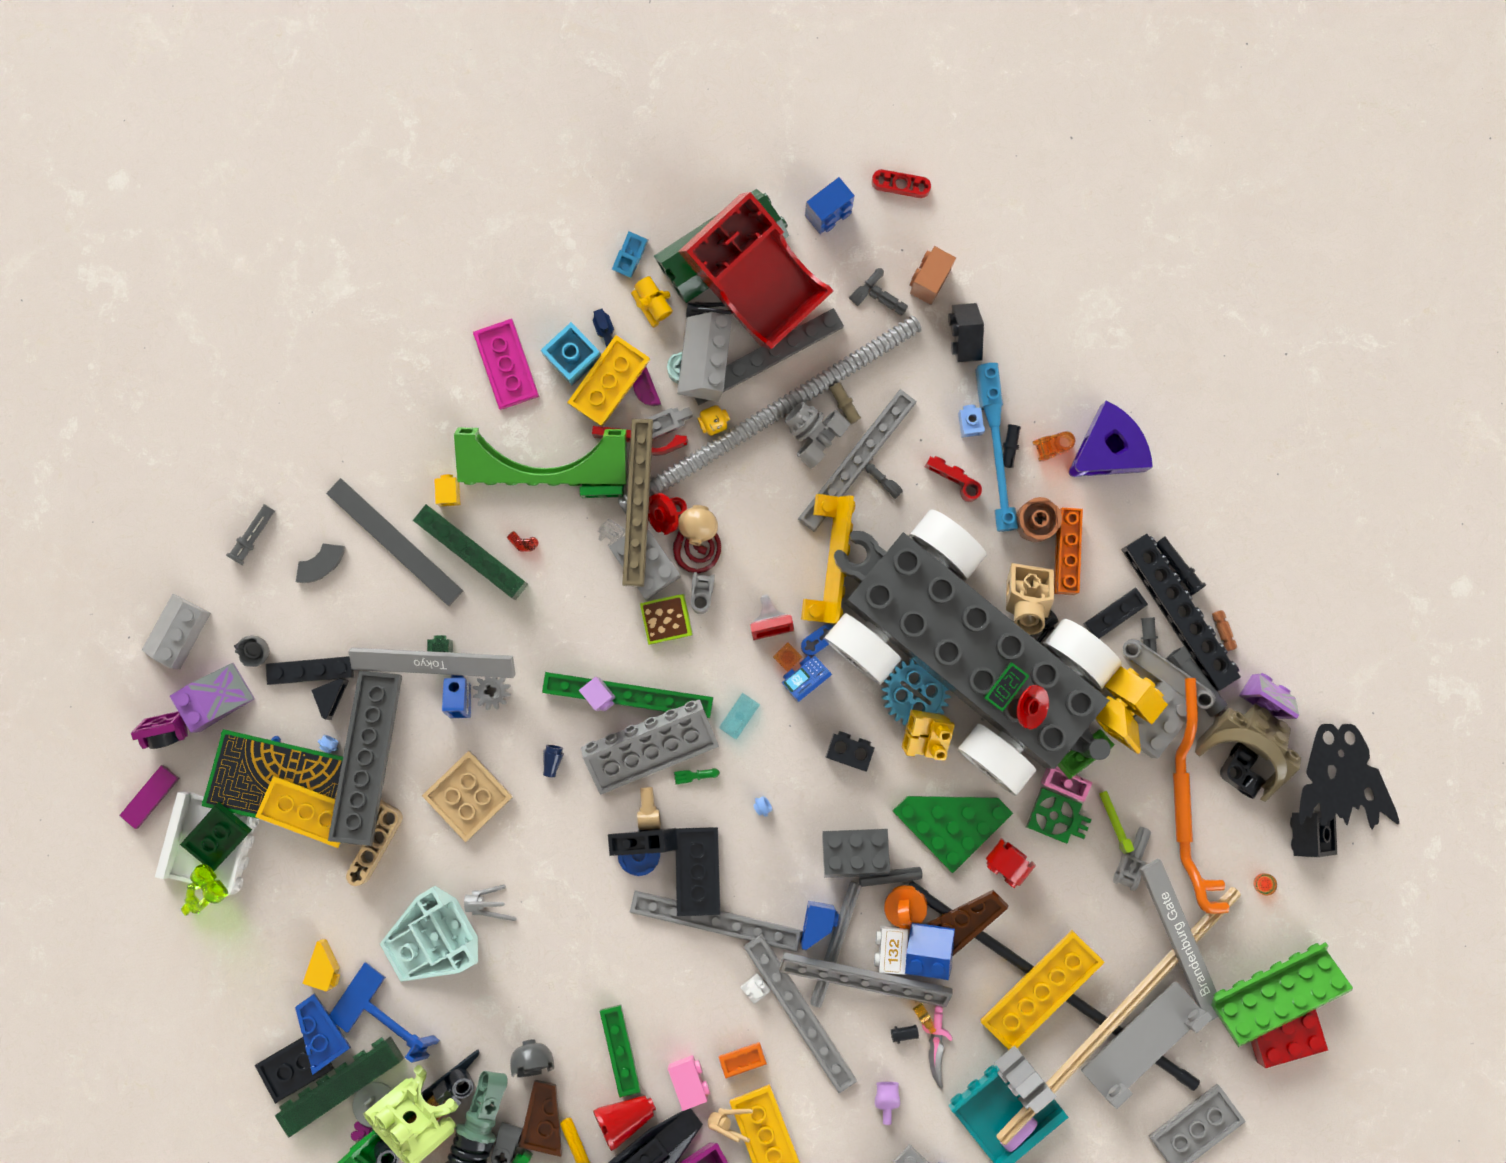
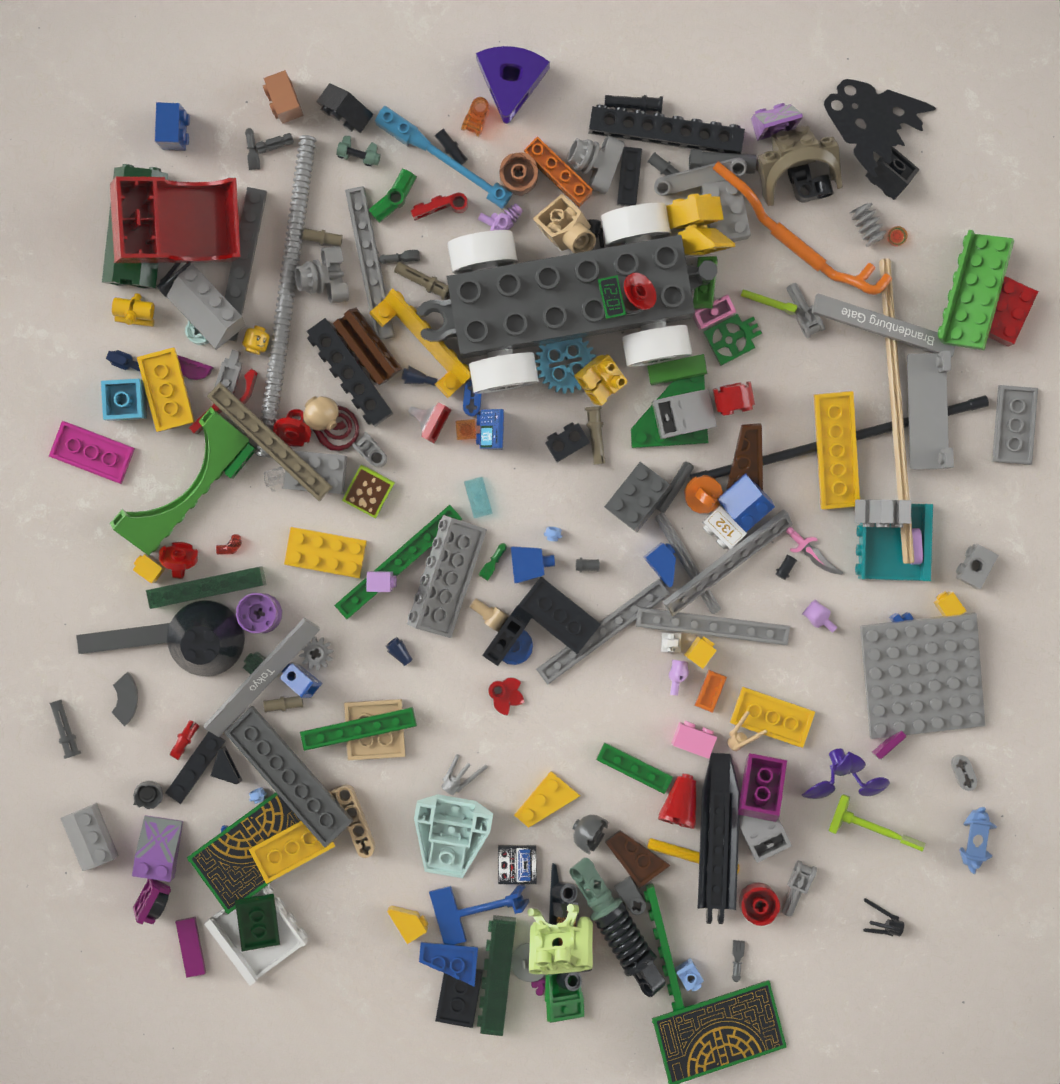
camera: 45 degrees left, 5 degrees up
(213, 890) = (292, 953): clear neon green piece -> none
(324, 641) = (183, 739): none -> red piece
(425, 699) = (282, 703): none -> dark tan pin
(427, 587) = (205, 638): none -> black cone
(451, 1019) = (517, 864): none -> tile
(456, 782) = (358, 728): none -> green tile
(474, 610) = (248, 615): none -> medium lavender wheel
(476, 508) = (178, 558): none -> red tile
(528, 996) = (545, 800): none -> yellow wing
(584, 626) = (325, 552): none -> yellow plate
(593, 886) = (508, 696): none -> red plate
(630, 254) = (86, 298): dark azure slope -> none
(720, 807) = (529, 563): none -> blue torso
(732, 1019) = (677, 674): none -> lavender piece
(760, 858) = (587, 565): none -> dark grey pin
(769, 1022) = (700, 651): none -> yellow brick
(770, 469) = (323, 330): none -> black brick
(786, 515) = (367, 346): none -> reddish brown brick
(795, 576) = (413, 376): none -> dark blue cone
(883, 525) = (430, 283): none -> dark tan pin
(884, 763) = (595, 424): none -> dark tan pin
(905, 191) = (206, 62): red beam -> none
(916, 433) = (402, 186): none -> green piece
(924, 1017) = (787, 544): clear yellow piece -> none
(944, 386) = (370, 156): none -> sand green piece
(959, 831) = (684, 414): none -> light grey slope
(969, 428) = (415, 164): light blue brick -> none
(987, 539) = (502, 221): none -> lavender piece
(991, 793) = (677, 369): none -> bright green tile
(1108, 582) = (587, 156): none -> light grey beam
(1224, 630) = (704, 111): nougat axle -> none
(1254, 851) = (868, 224): none -> light grey piece

